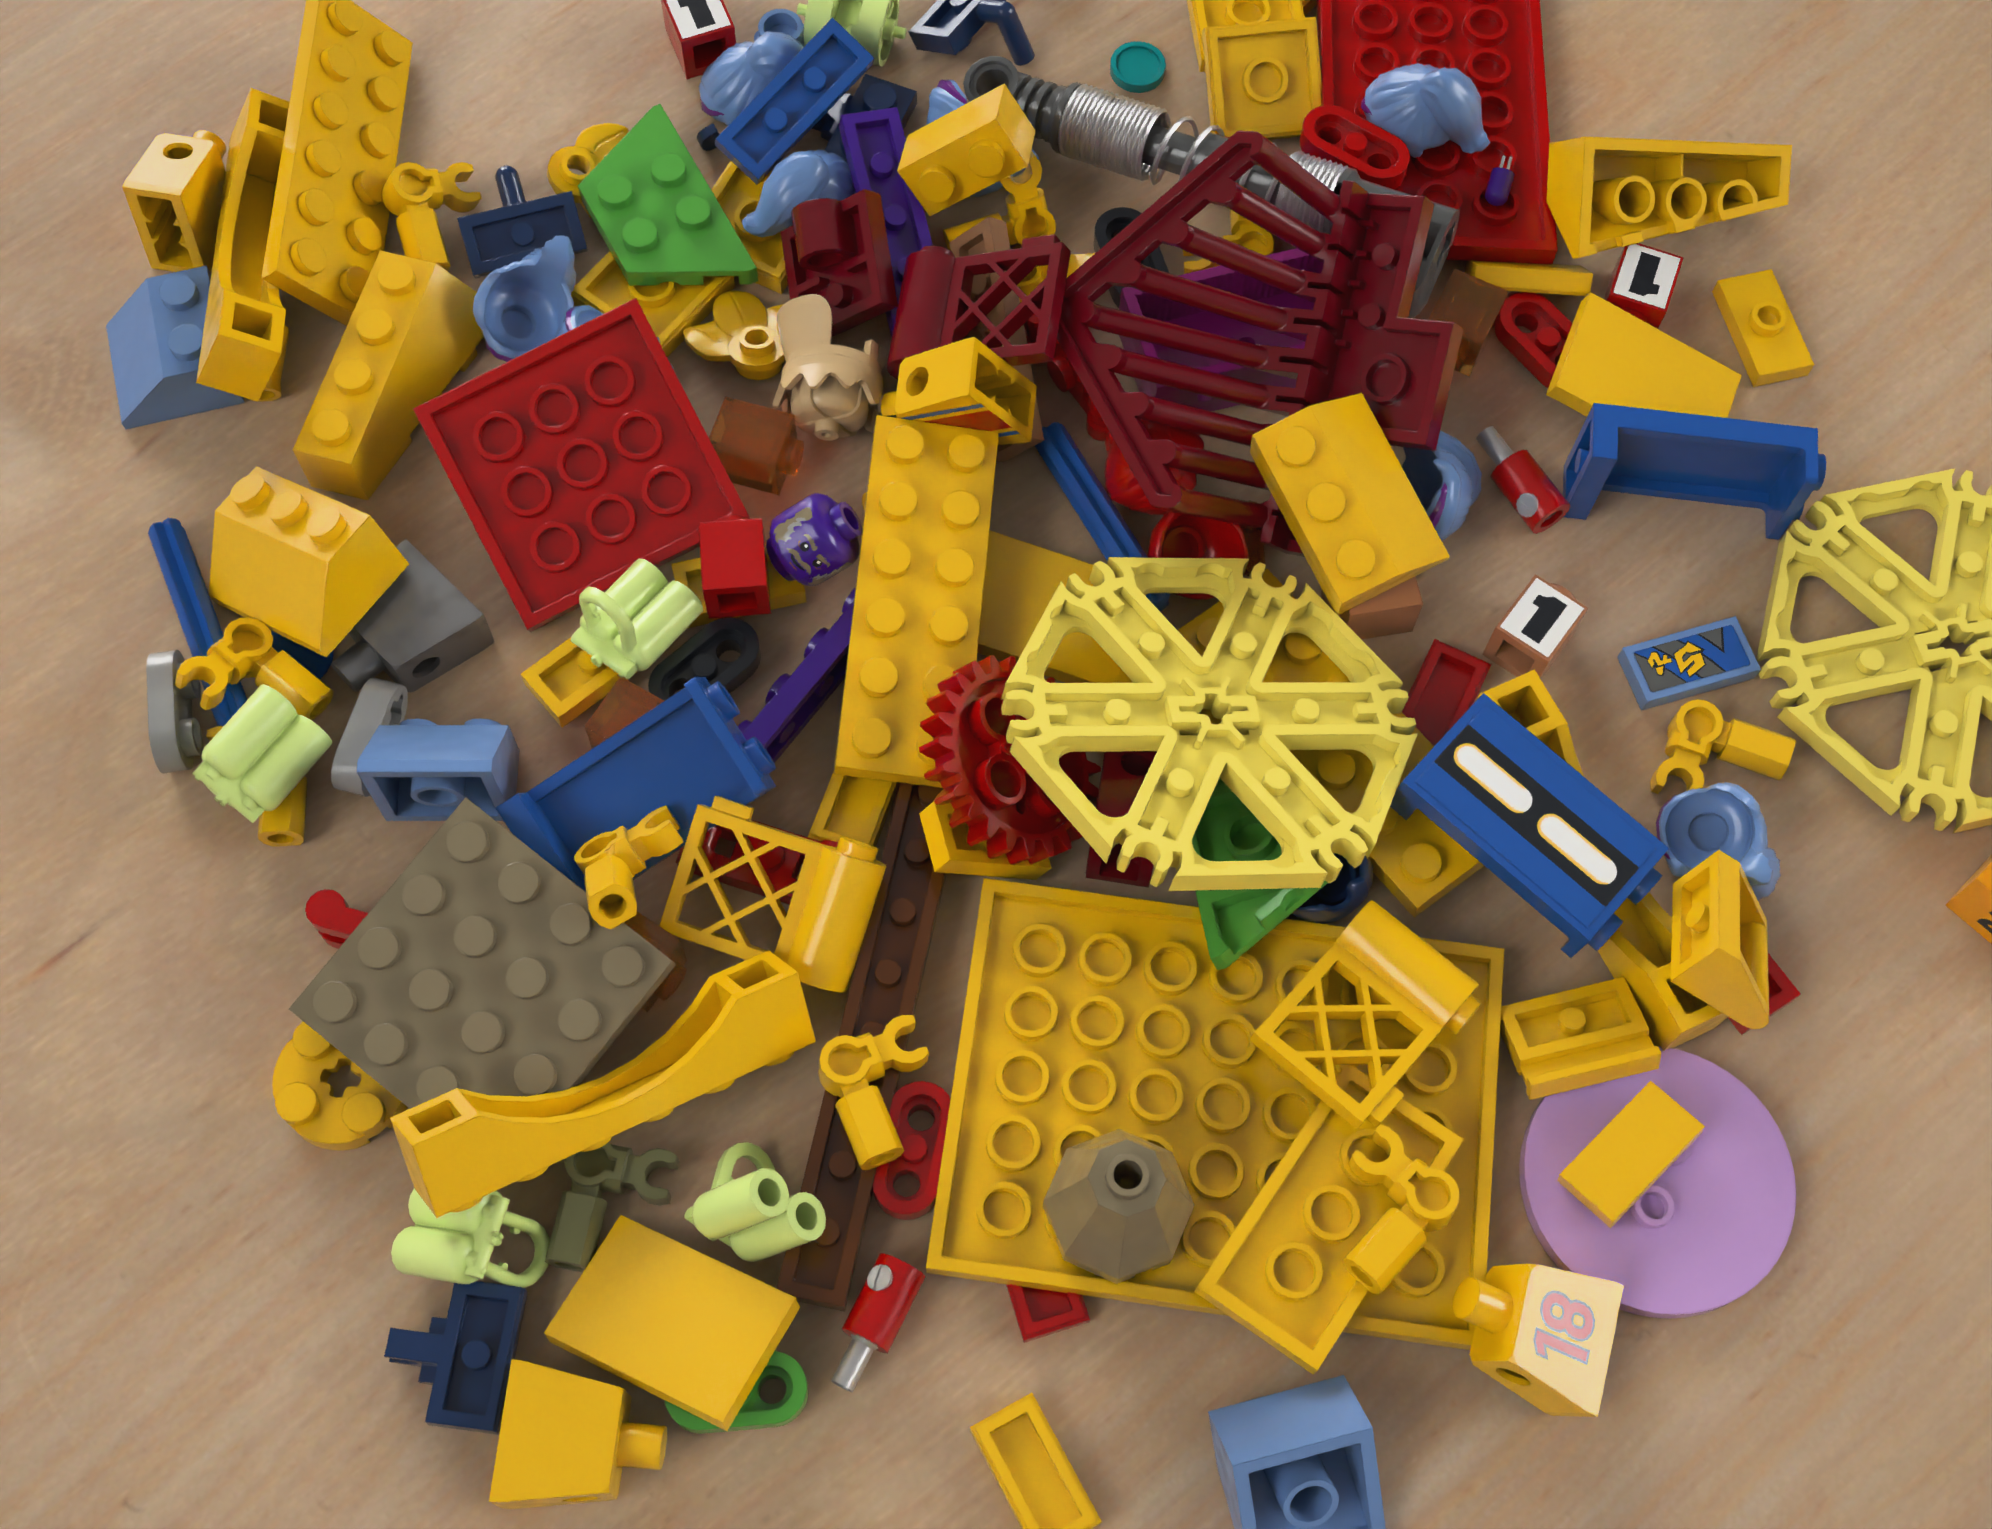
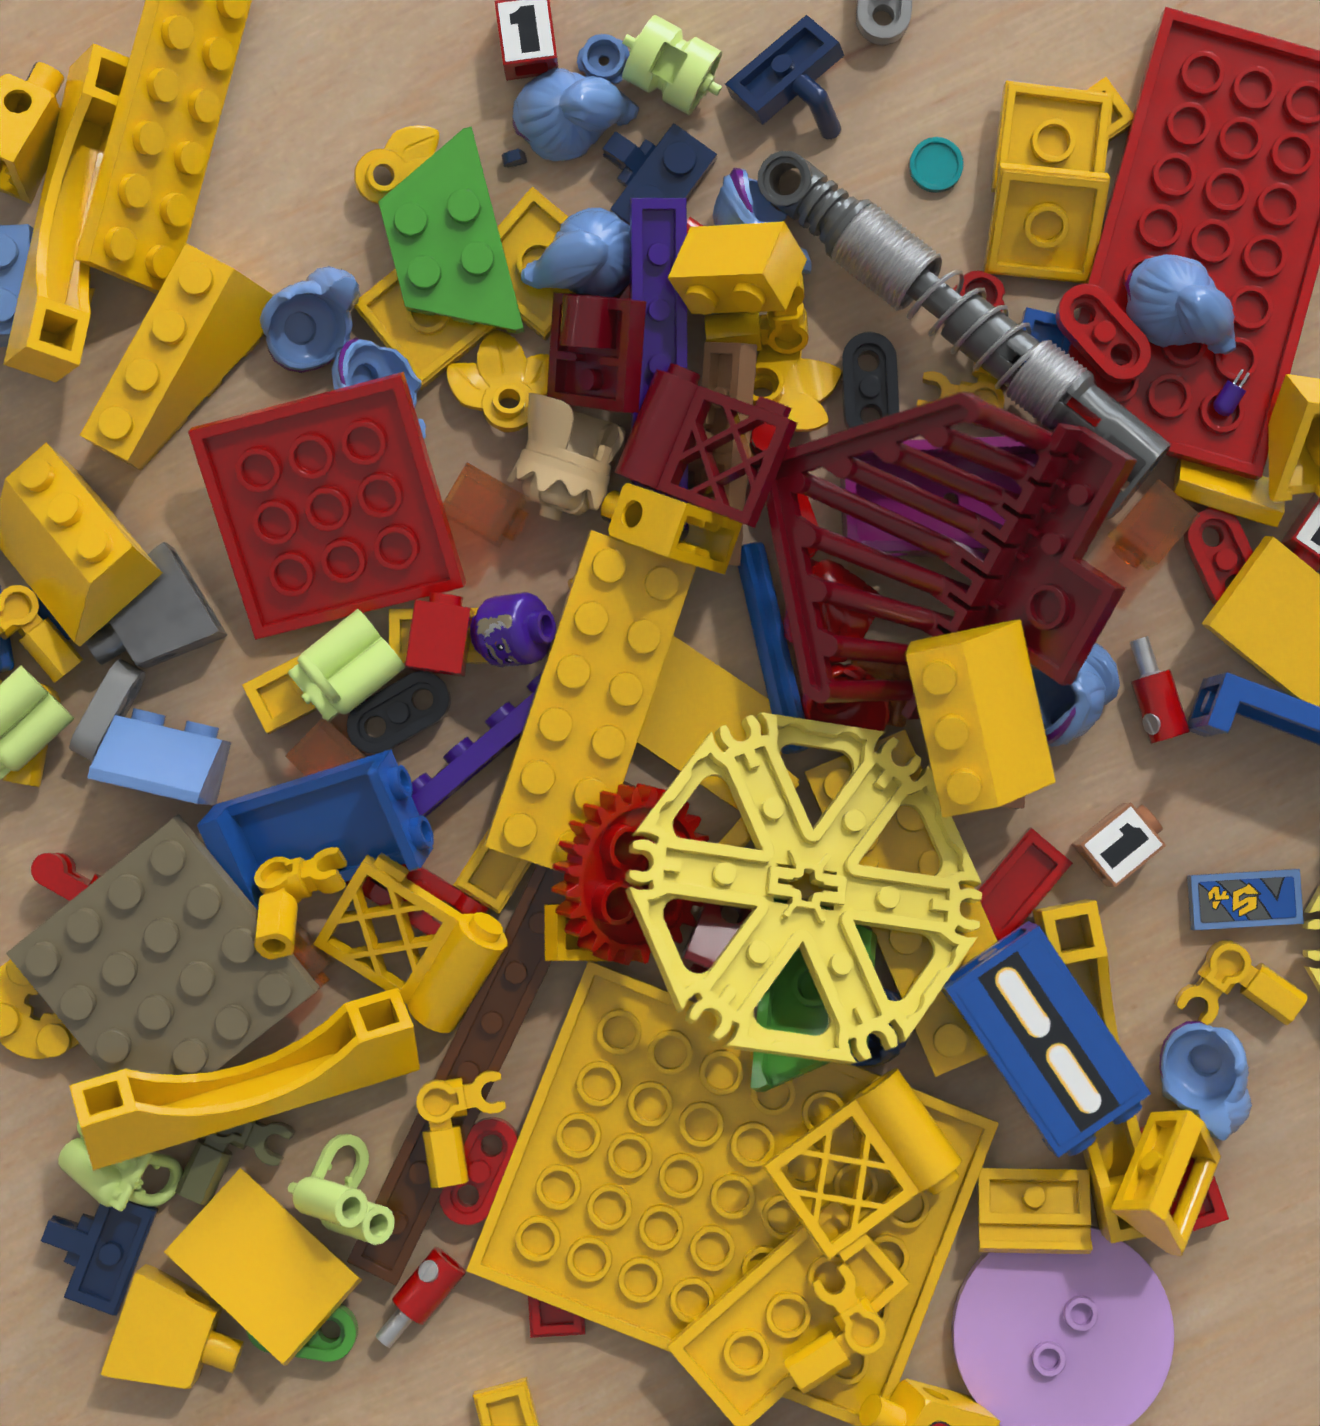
camera: 15 degrees right, 20 degrees up
(415, 194) = (224, 174): yellow bar -> none
(518, 227) = (319, 231): dark blue plate -> none
(794, 101) = (595, 158): blue plate -> none
(1118, 1206) = (625, 1240): dark tan cone -> none
(1630, 1154) = (1042, 1318): yellow tile -> none

